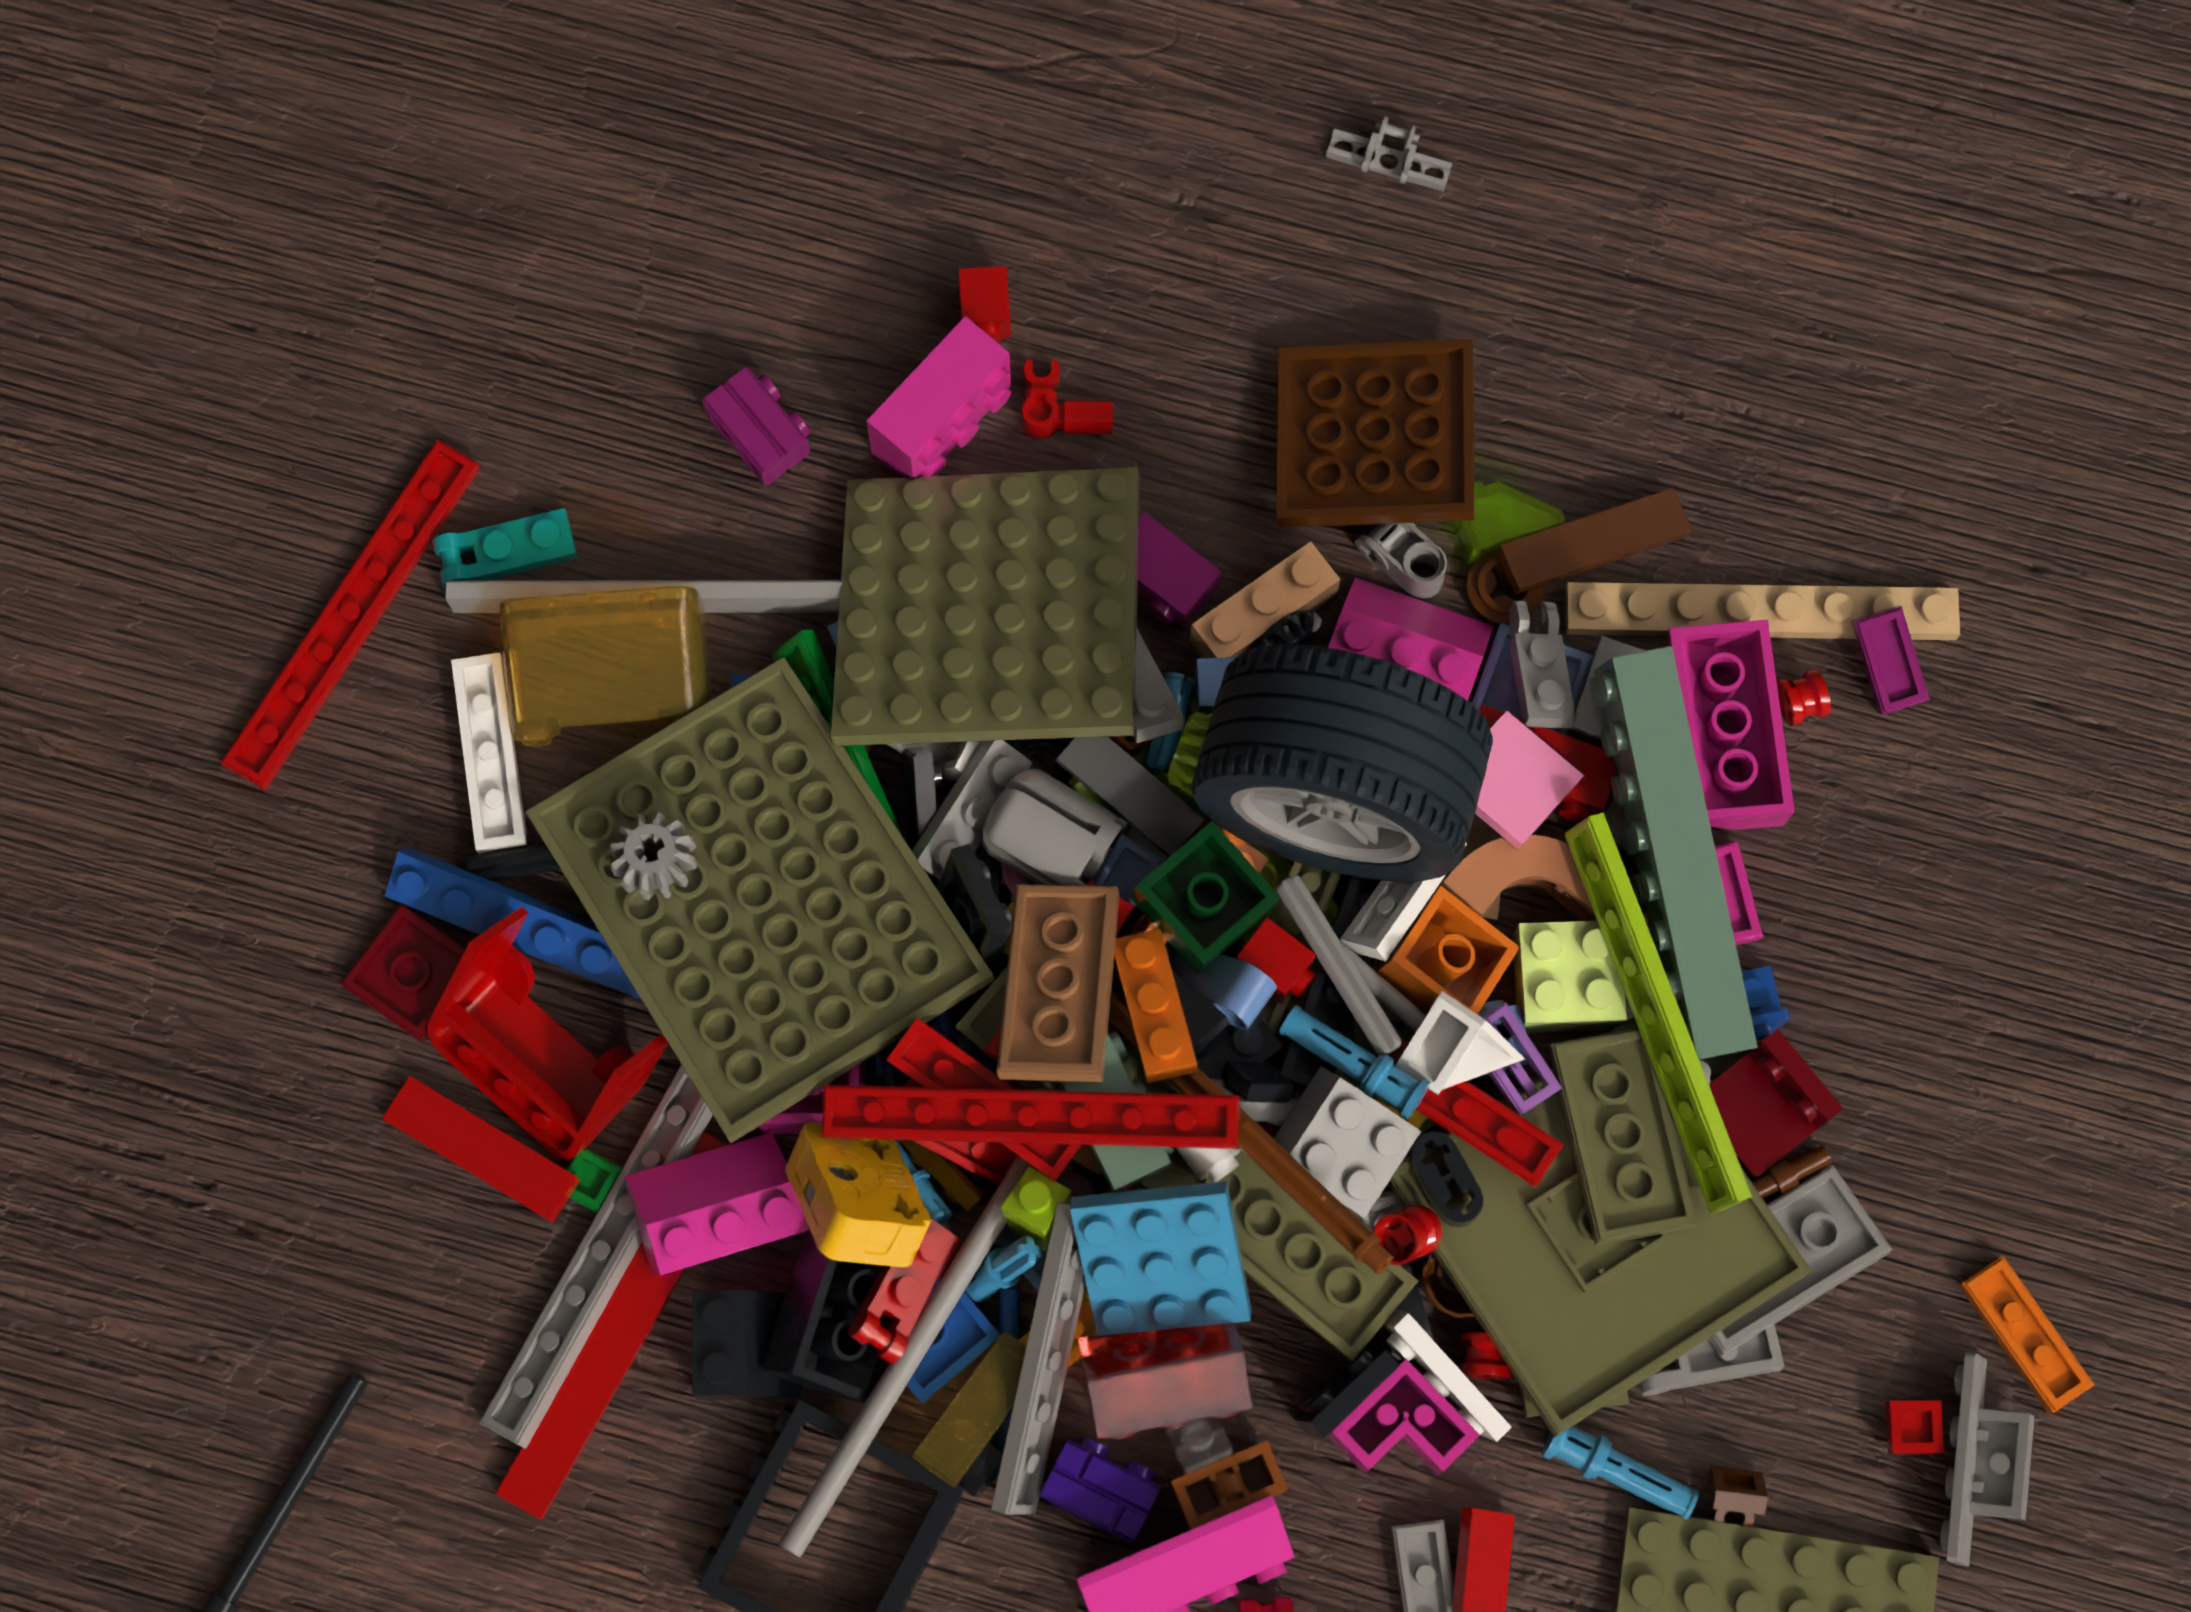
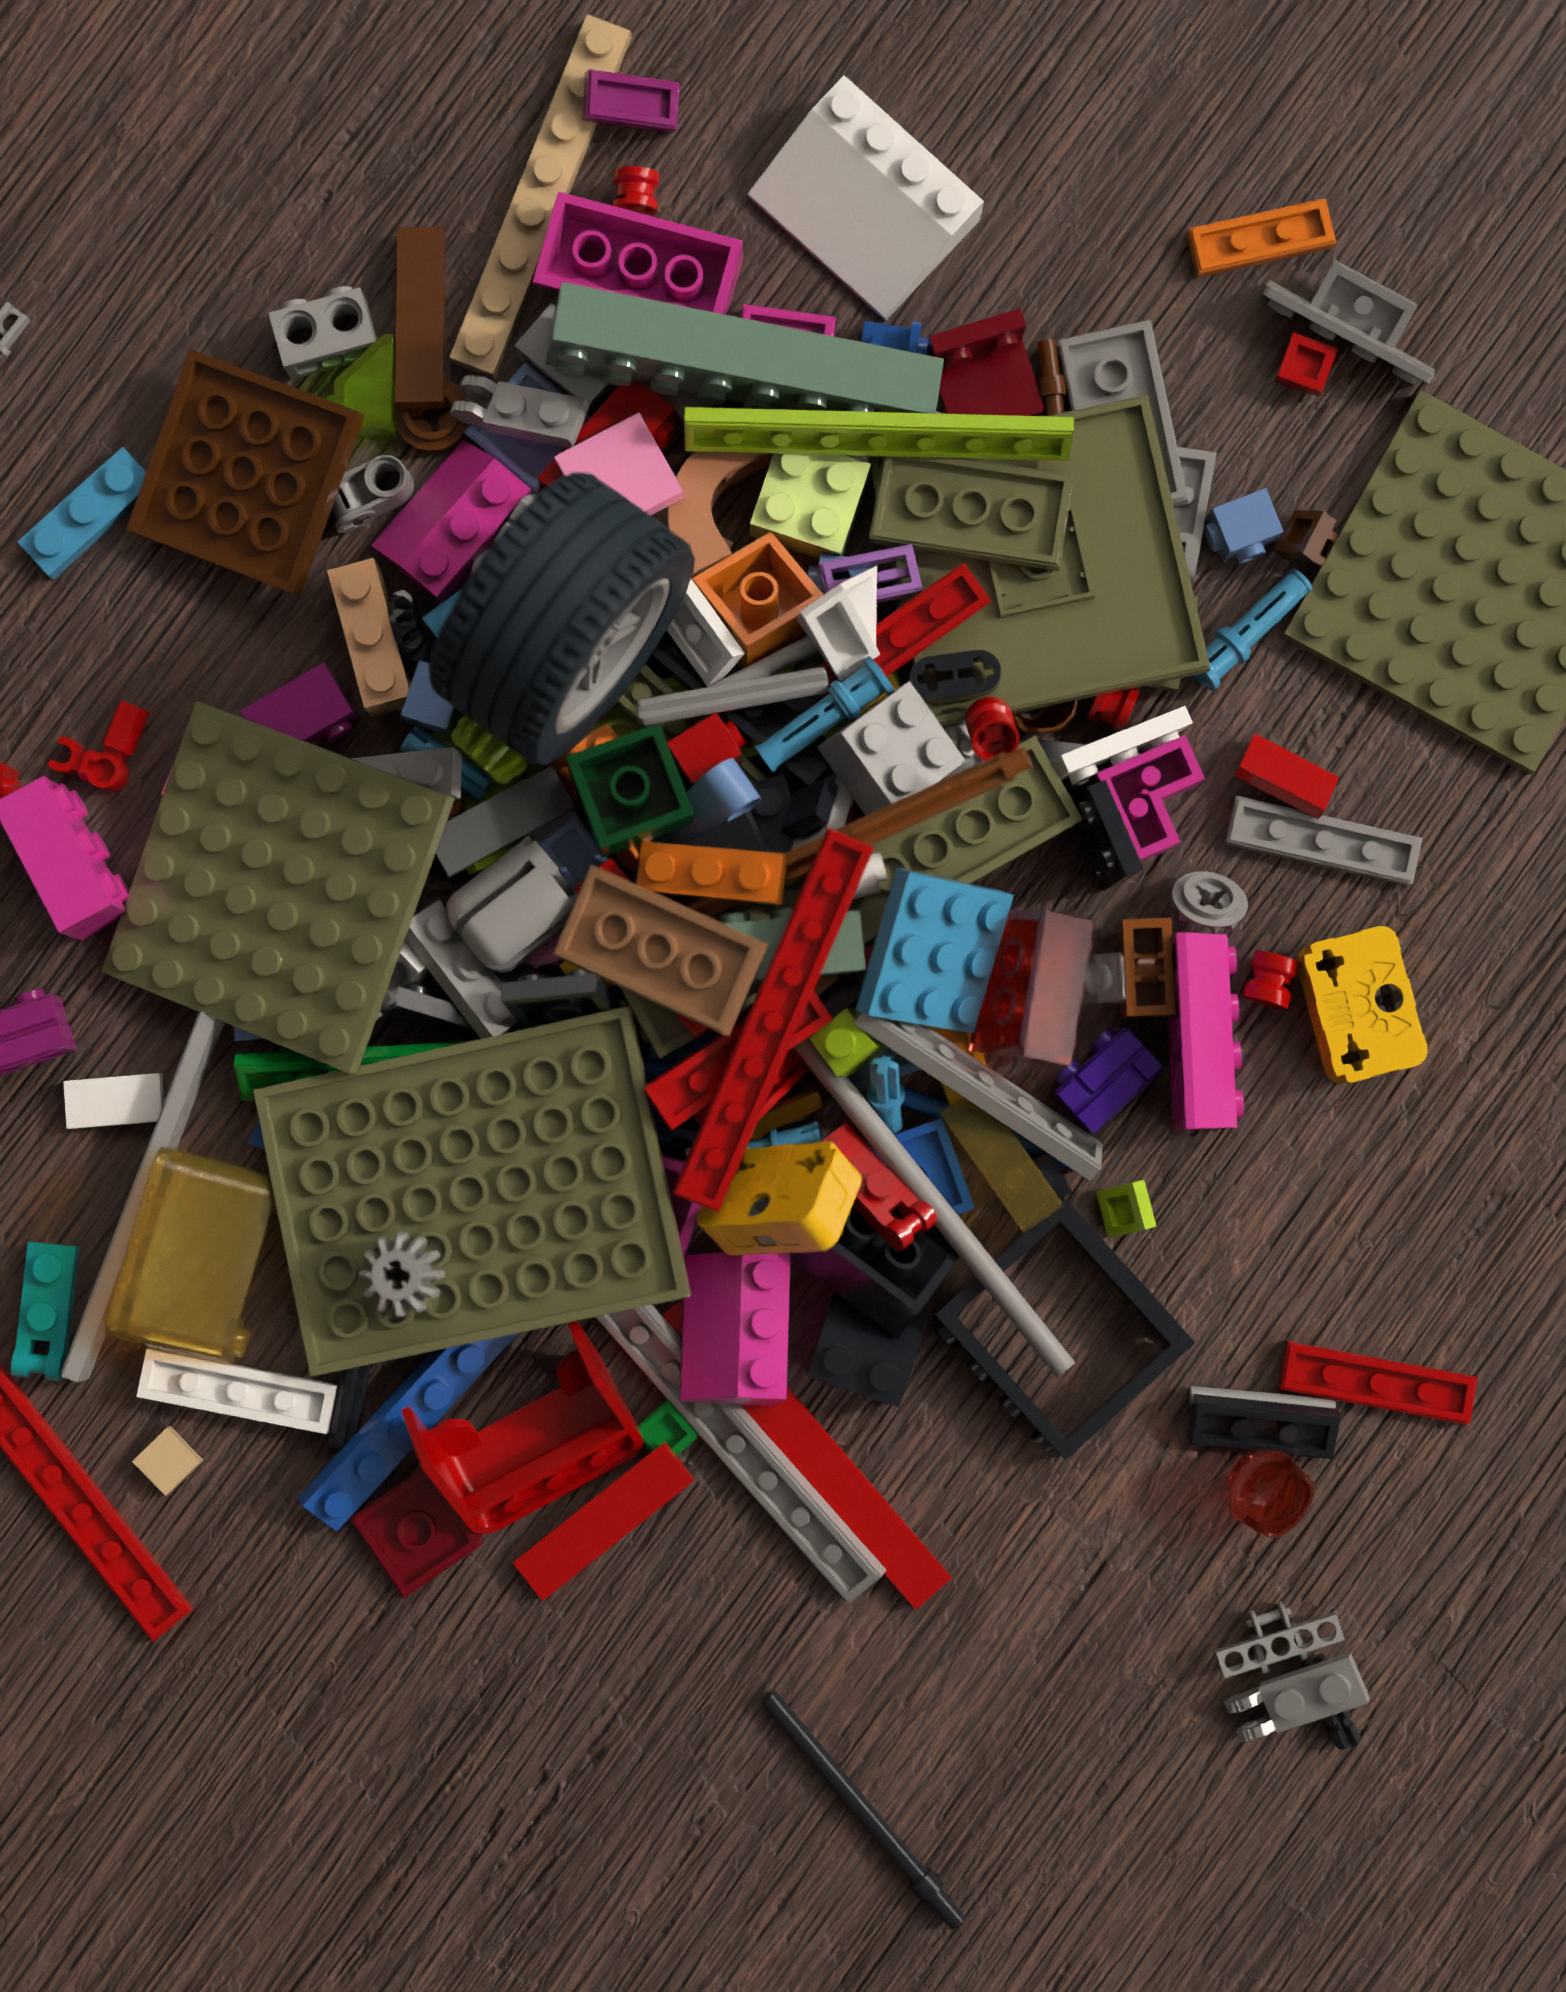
camera: 70 degrees left, 10 degrees up
(399, 713) = (167, 1460): none -> tan tile
(728, 536) = (113, 1100): none -> white tile
(977, 1559) = (1126, 1208): none -> lime plate
(1278, 306) = (85, 514): none -> dark azure plate
(1337, 1527) = (1209, 889): none -> light grey gear
(1531, 463) = (327, 345): none -> light grey brick
(1719, 1423) = (1243, 527): none -> medium blue brick
(1892, 922) = (866, 198): none -> white slope

